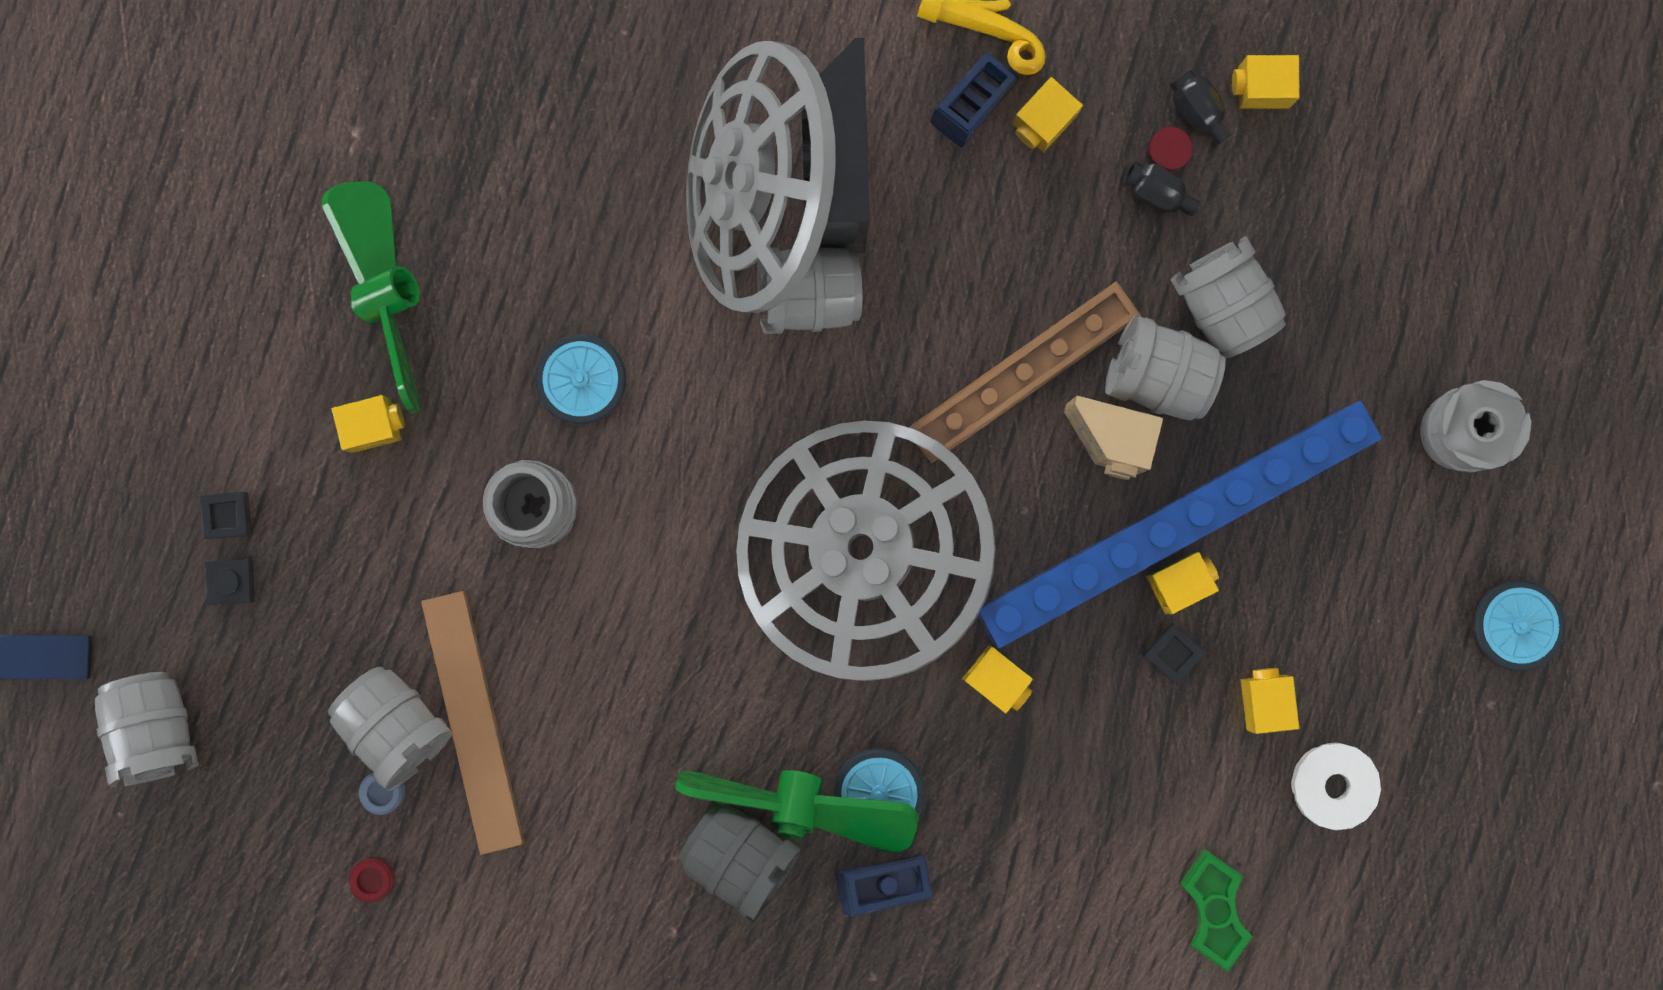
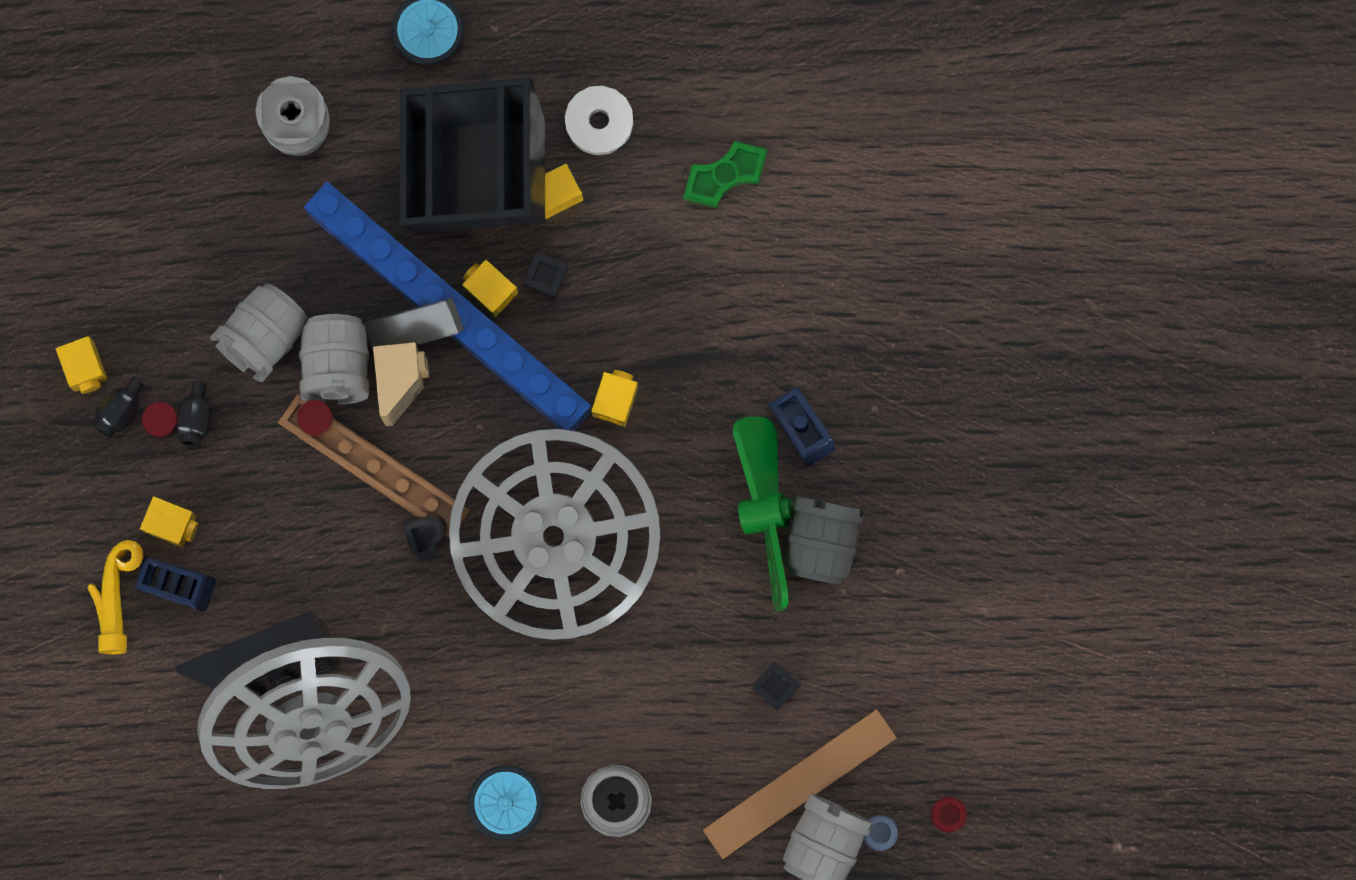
camera: 105 degrees left, 5 degrees down
(593, 738) = (775, 686): none -> black plate
(825, 298) = (377, 627): light grey piece -> none
(881, 776) = (720, 458): medium azure wheel -> none
(922, 401) = (424, 534): none -> black tile
(1105, 324) = (315, 418): none -> dark red tile
(1170, 479) = (415, 325): none -> dark grey tile
(1350, 621) = (471, 156): none -> black slope

